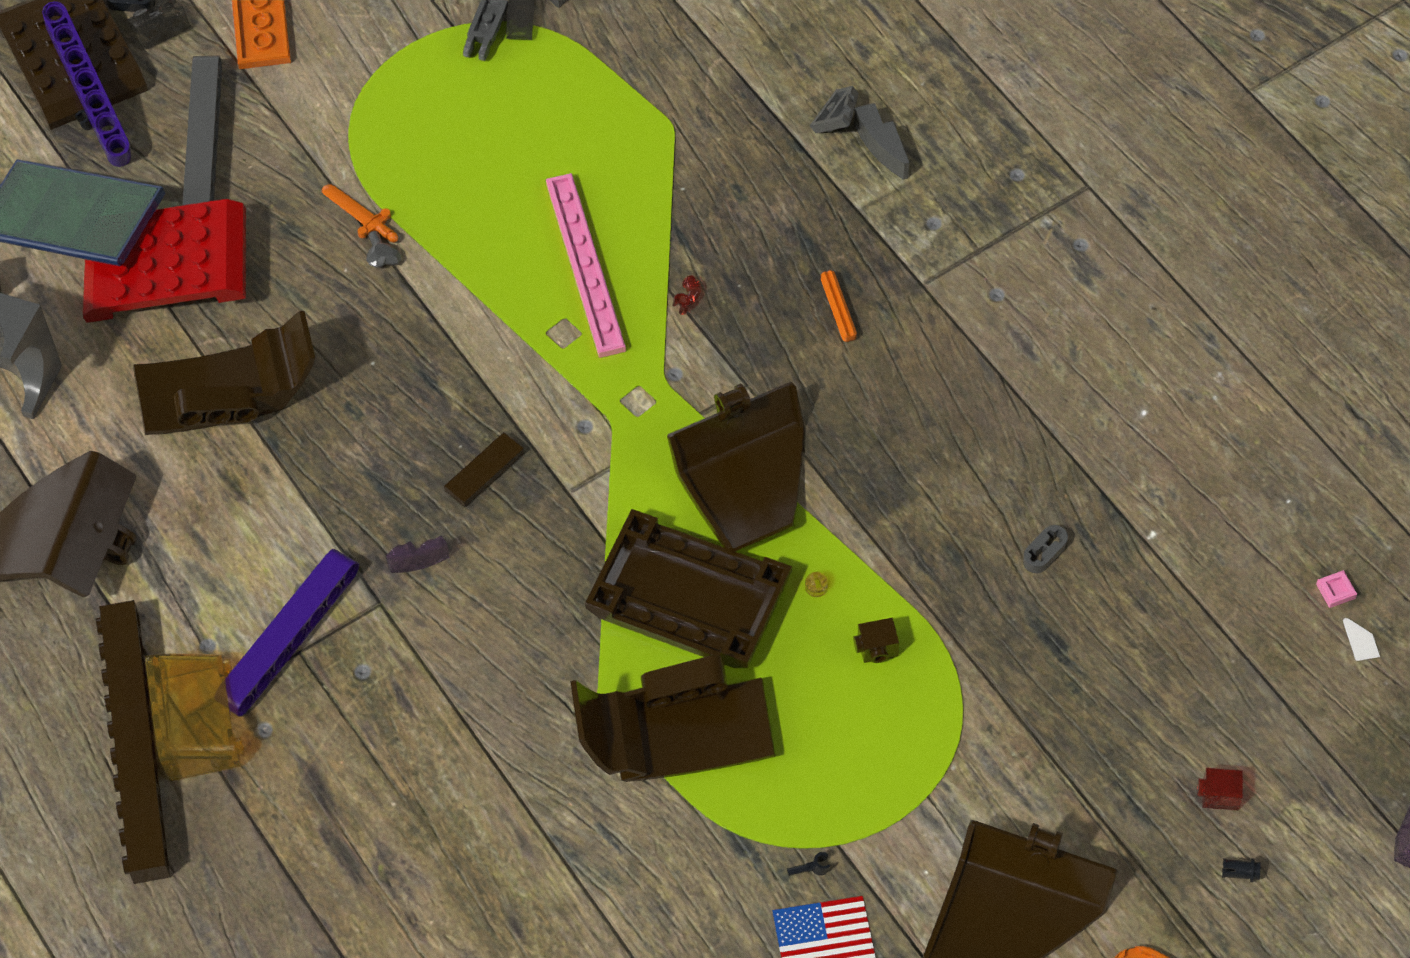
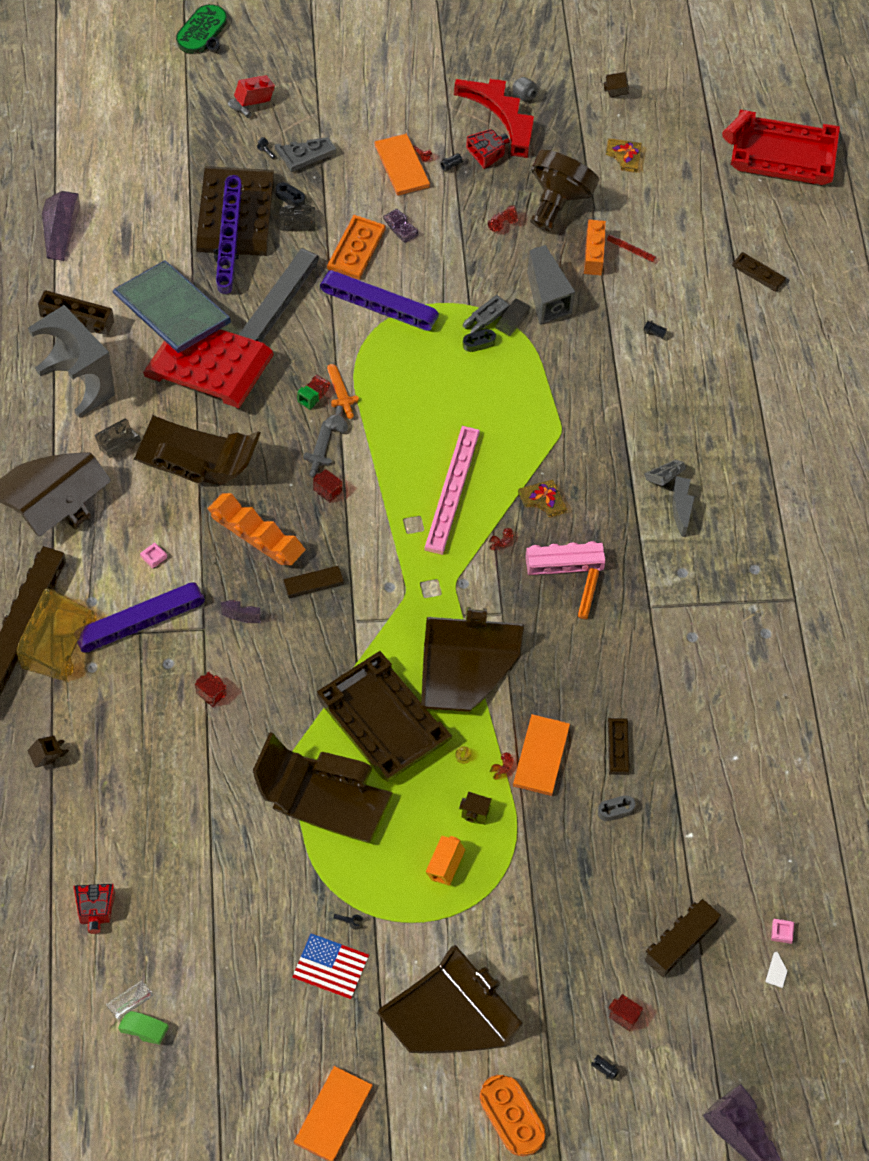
camera: 25 degrees right, 0 degrees up
(105, 419) = (117, 438): none -> clear smoke bracket
(252, 544) = (153, 555): none -> bright pink tile
(279, 868) = (46, 751): none -> dark brown brick
(326, 231) = (313, 391): none -> leg
(336, 74) = (379, 300): none -> dark purple beam
(358, 442) = (251, 528): none -> orange brick
(385, 310) = (317, 458): none -> dark grey sword
(423, 339) = (327, 485): none -> clear red brick
(442, 673) = (210, 688): none -> clear red brick
(494, 62) = (479, 340): none -> black beam
(706, 215) = (543, 496): none -> clear yellow tile
(782, 278) = (565, 558): none -> bright pink brick
(878, 567) = (507, 762): none -> clear red arm
(884, 724) = (445, 860): none -> orange brick
(912, 533) = (541, 755): none -> orange tile
(997, 473) = (618, 746): none -> dark brown tile
(1230, 660) = (682, 937): none -> dark brown brick

